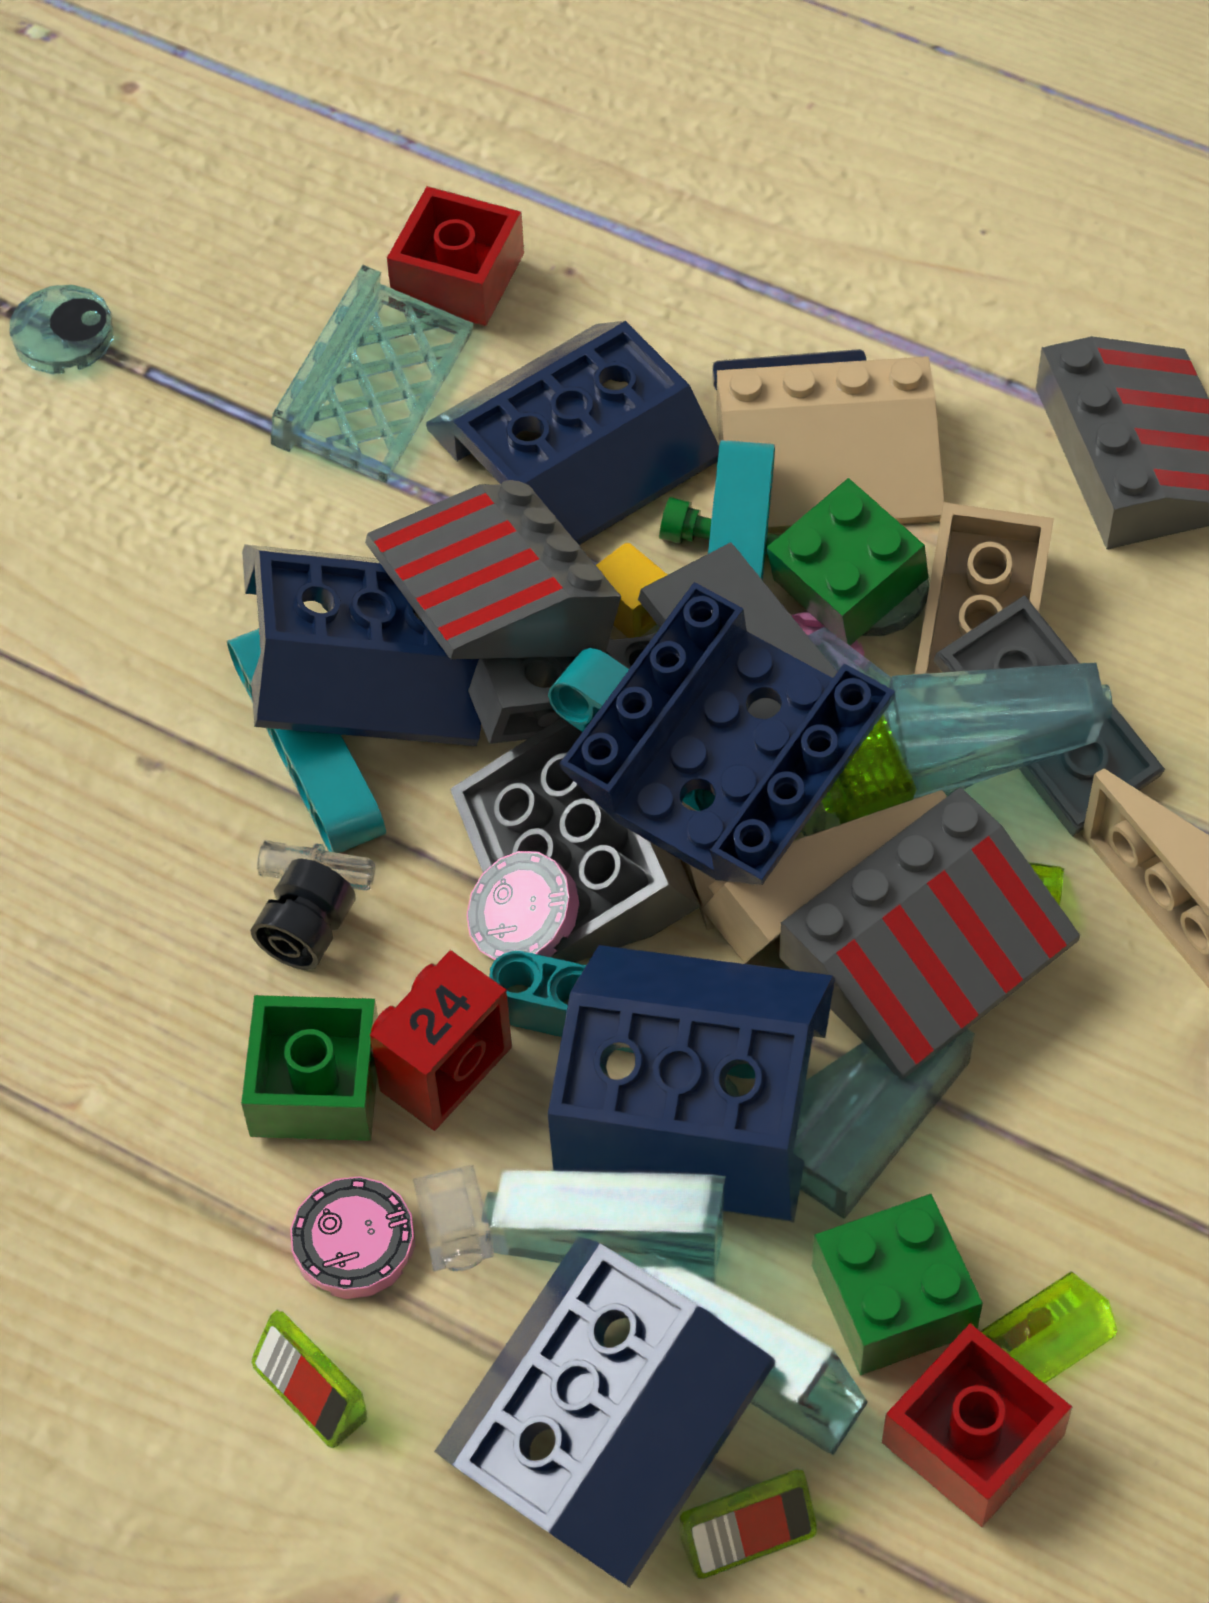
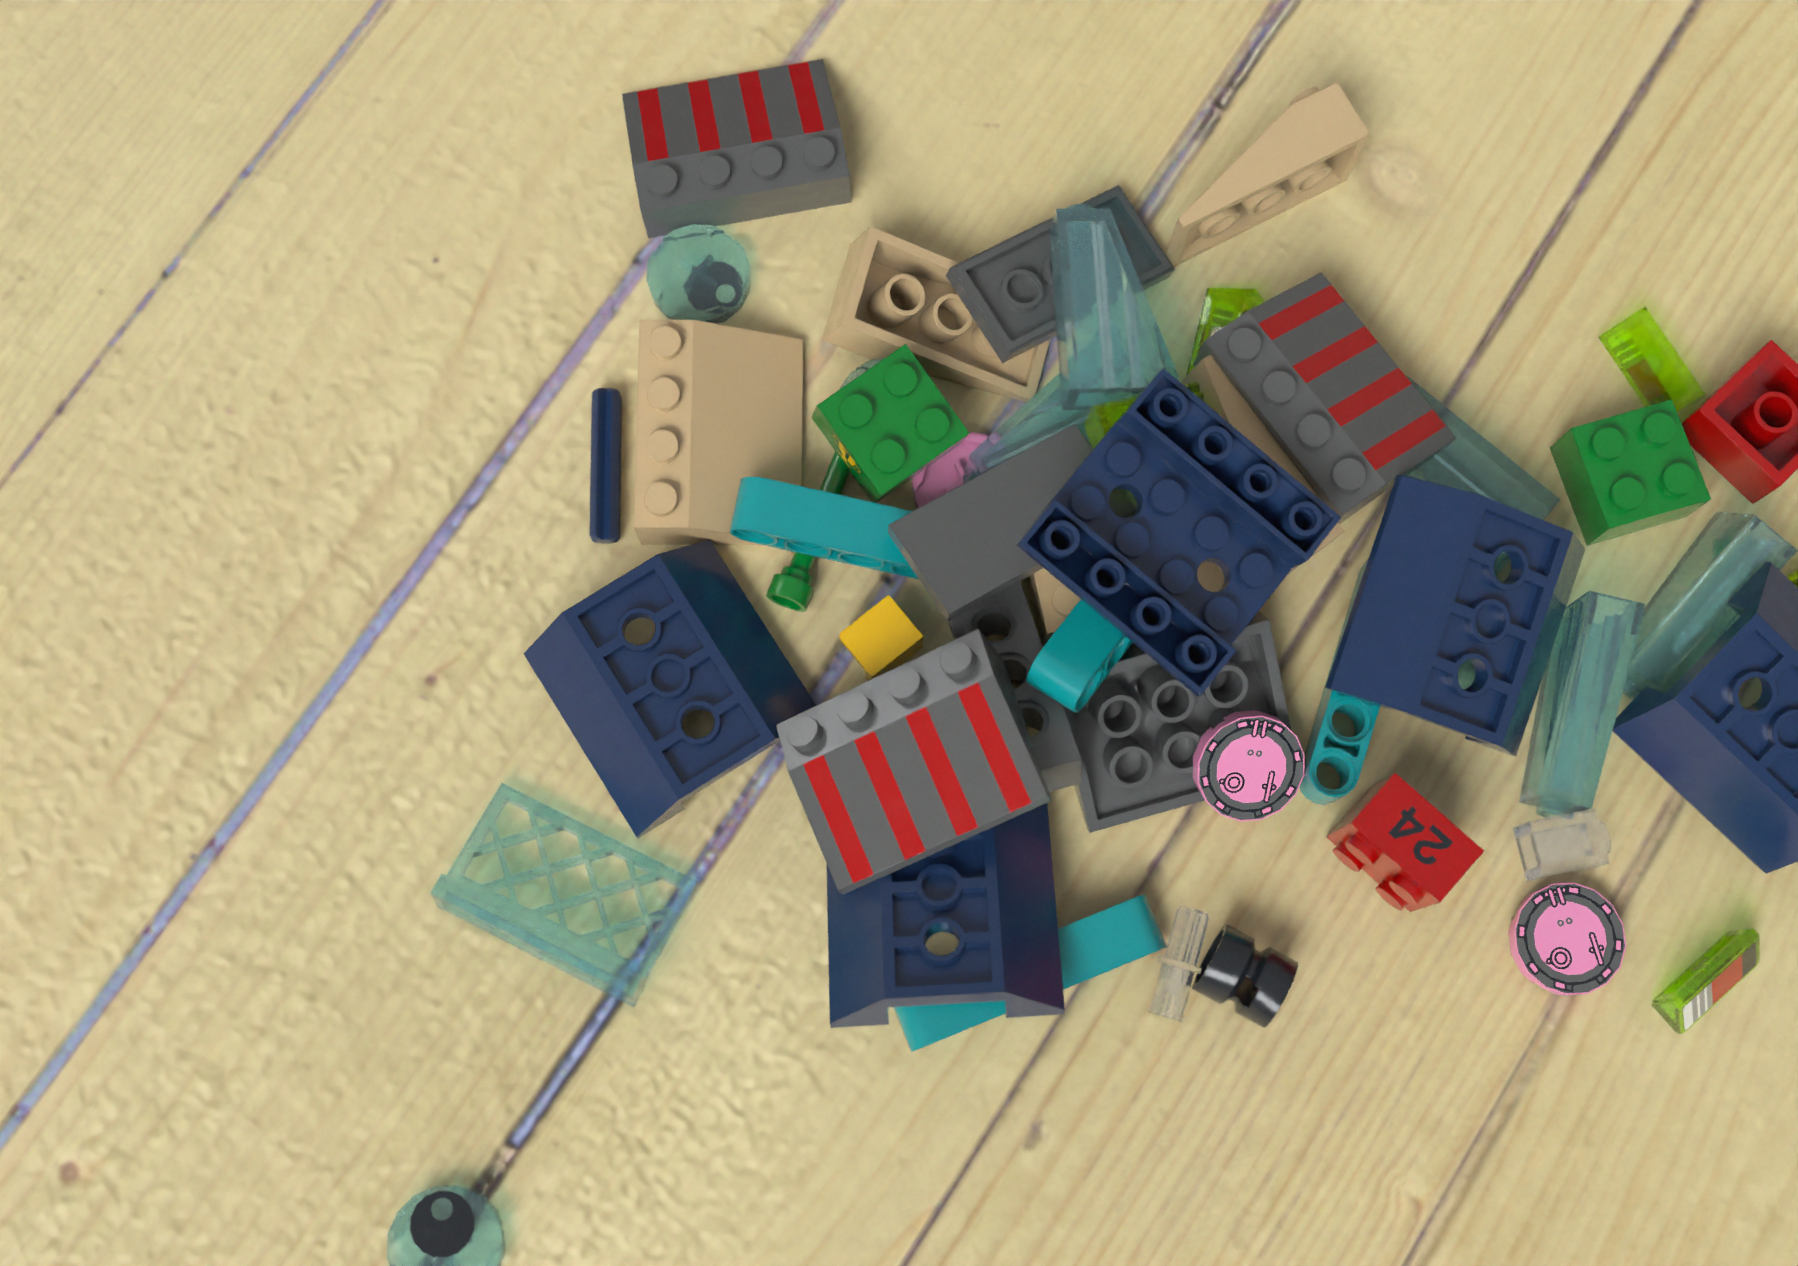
camera: 90 degrees left, 20 degrees up
(310, 1068) = (1420, 967): green brick -> none
(457, 254) = (421, 791): red brick -> none
(999, 427) = (699, 274): none -> clear light blue tile

